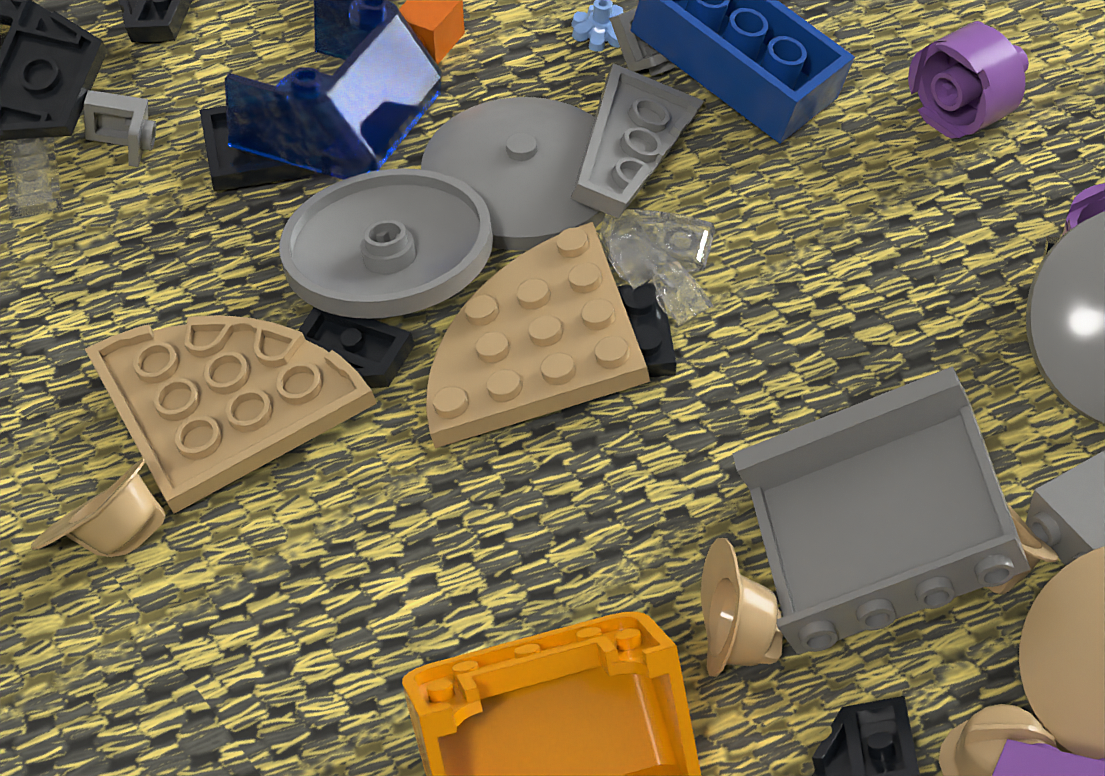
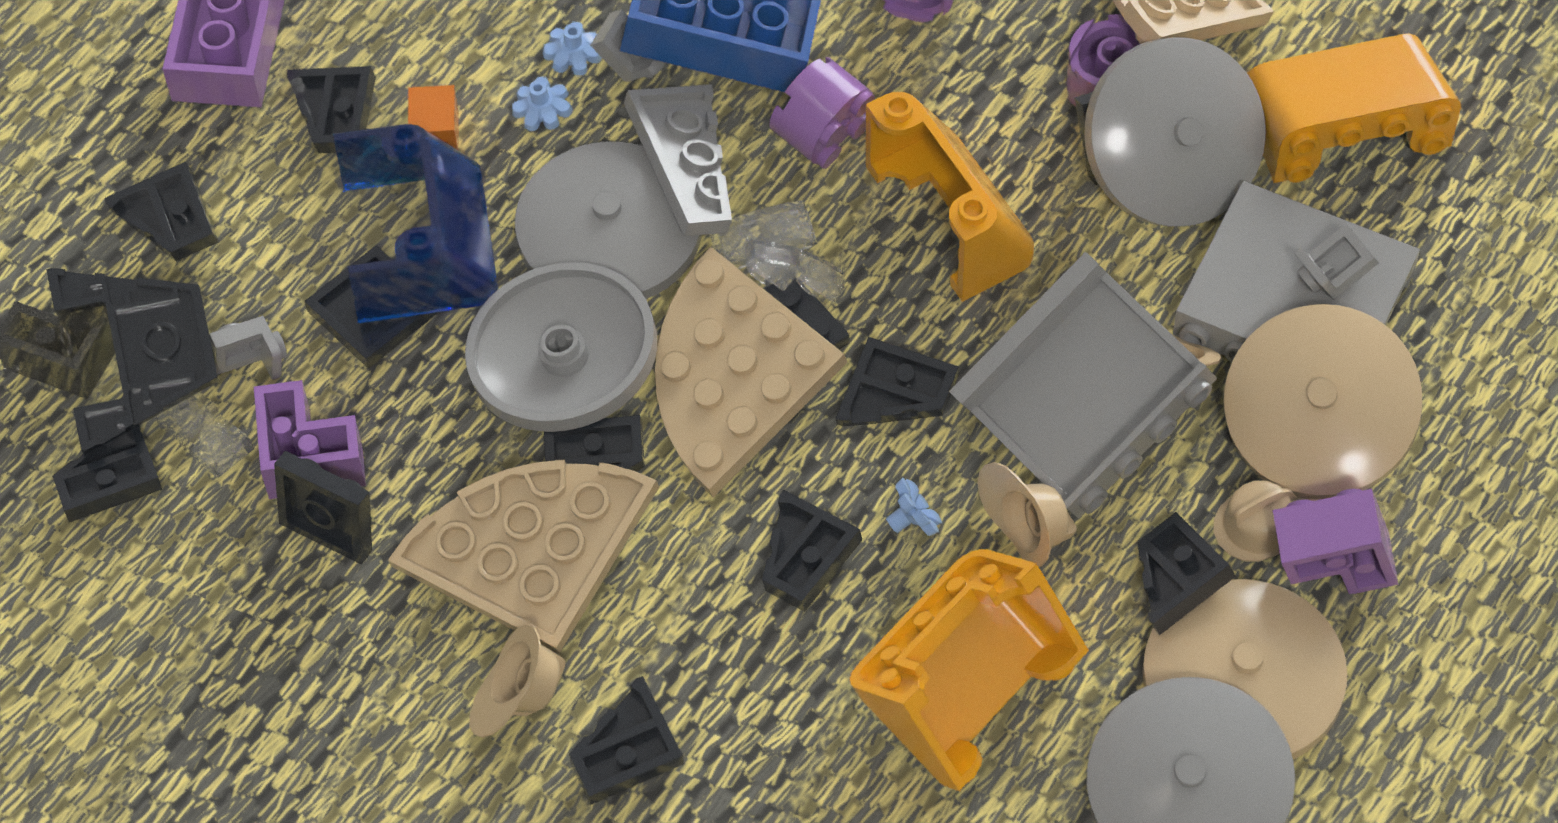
camera: 30 degrees left, 10 degrees up
(60, 270) = (323, 507): none -> black plate
(92, 216) = (286, 425): none -> medium lavender brick
(156, 632) = (625, 747): none -> black wing
(480, 539) = (806, 551): none -> black wing
(538, 54) = (541, 104): none -> light blue plant
(620, 552) = (913, 510): none -> light blue plant
(685, 429) = (896, 386): none -> black wing
(786, 155) = (822, 111): none -> medium lavender brick
(873, 292) = (917, 147): none -> light orange windscreen

